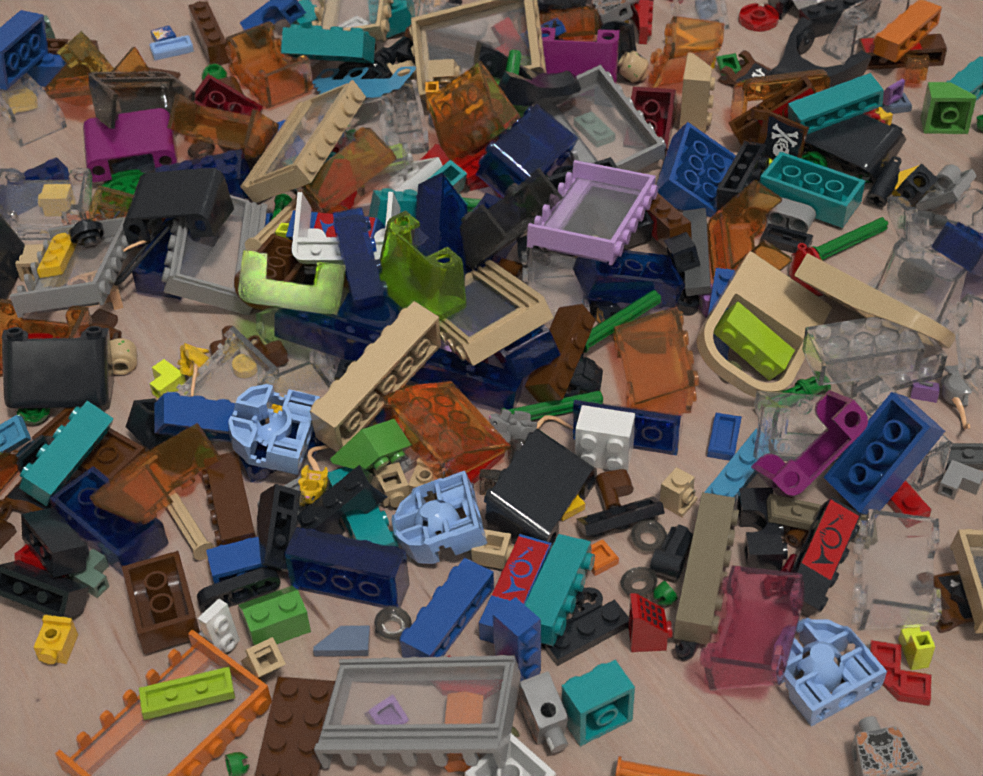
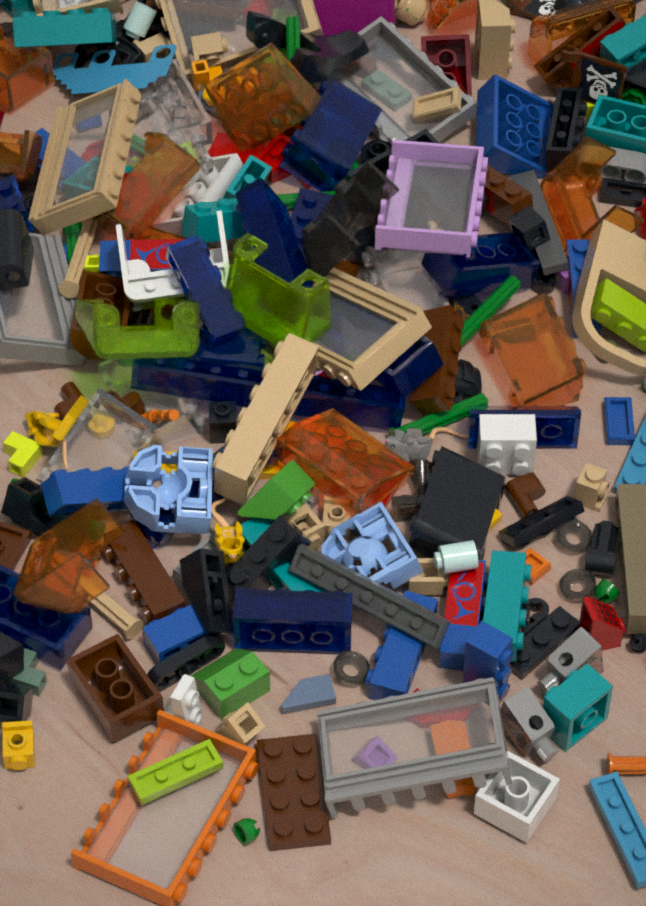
camera: 15 degrees left, 5 degrees up
(202, 352) = (70, 418): none -> yellow tile
(289, 363) = (155, 415): none -> orange piece
(395, 47) = (139, 20): none -> light aqua brick
(426, 557) = (370, 596): none -> dark grey tile
(520, 534) = (456, 557): none -> light aqua brick
(606, 647) = (572, 655): none -> light grey torso
(630, 141) = (437, 104): none -> tan tile

